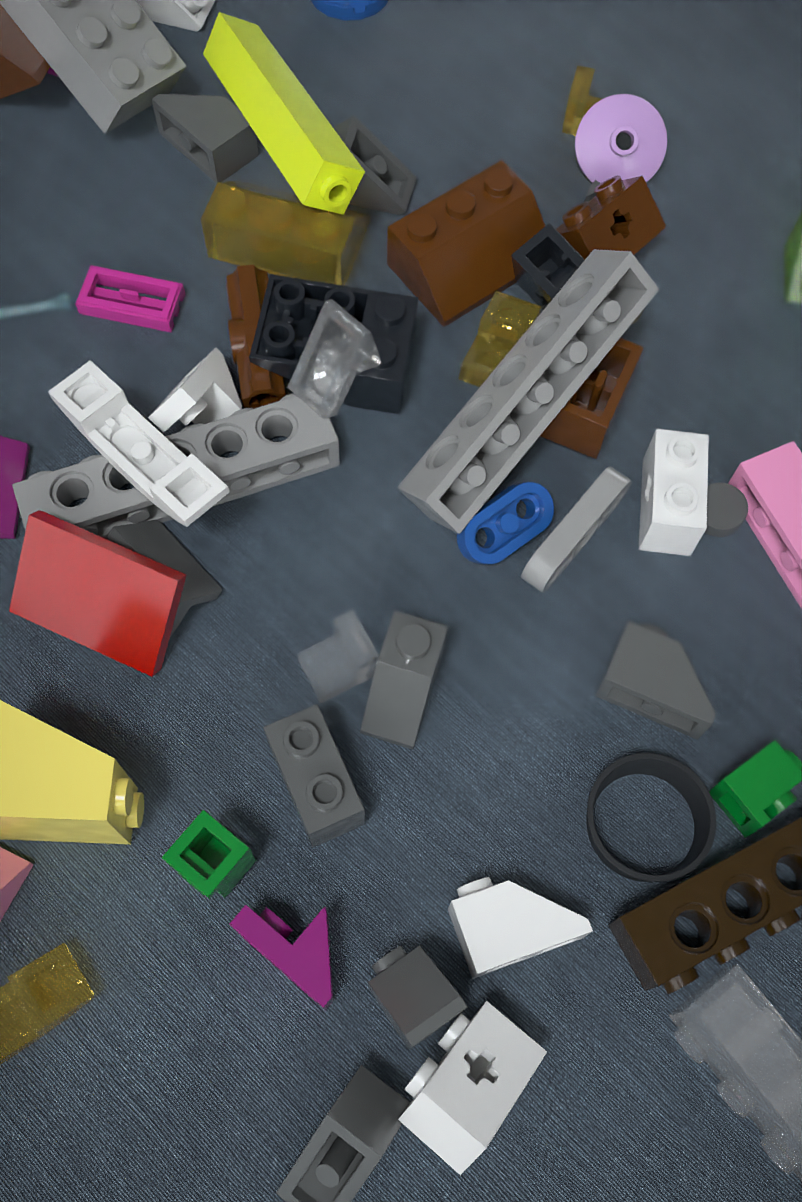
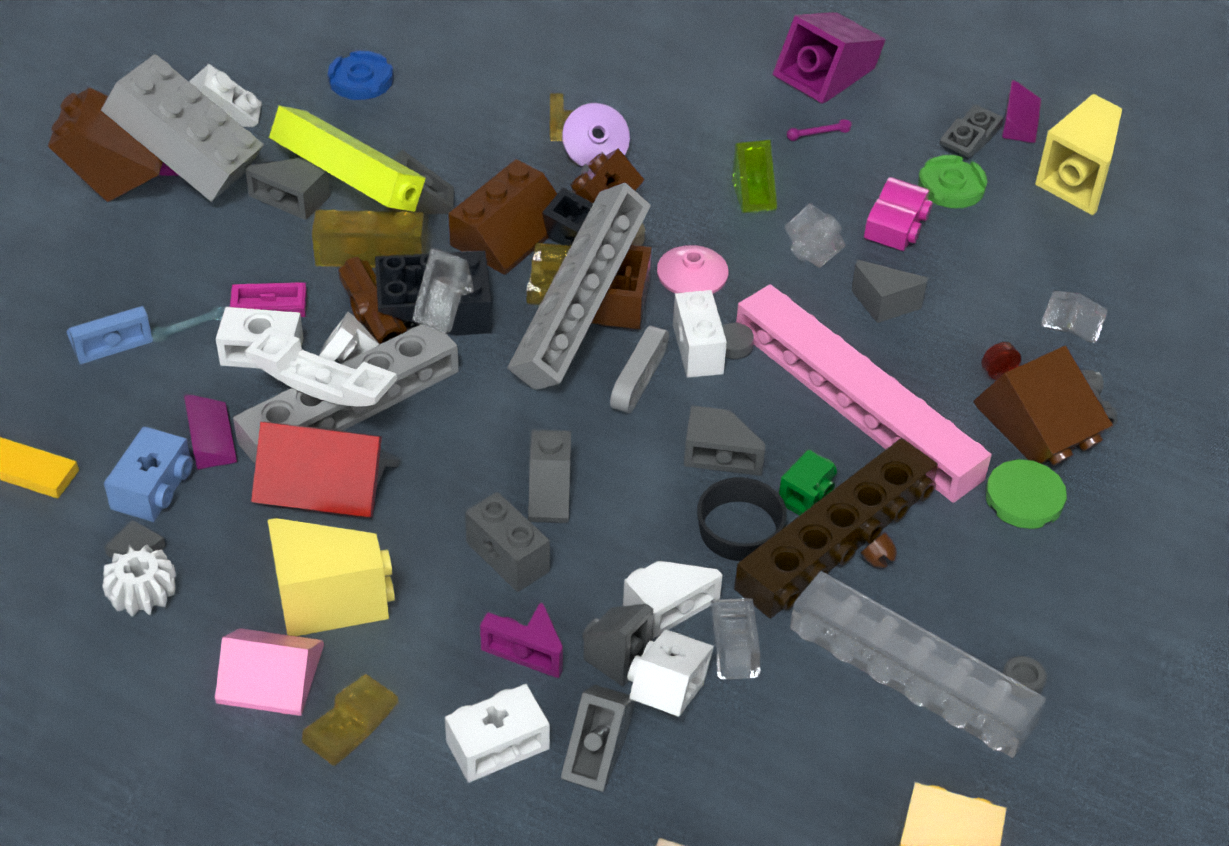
camera: 15 degrees left, 20 degrees down
(79, 337) = (243, 326): none -> white brick
(164, 1105) = (497, 732): none -> white brick
(209, 857) = (448, 605): green brick -> none
(339, 660) = (507, 473): clear panel -> none
(502, 524) = (587, 377): blue plate -> none
(570, 1067) = (735, 639): none -> clear slope
(690, 394) = (692, 269): none -> bright pink dish

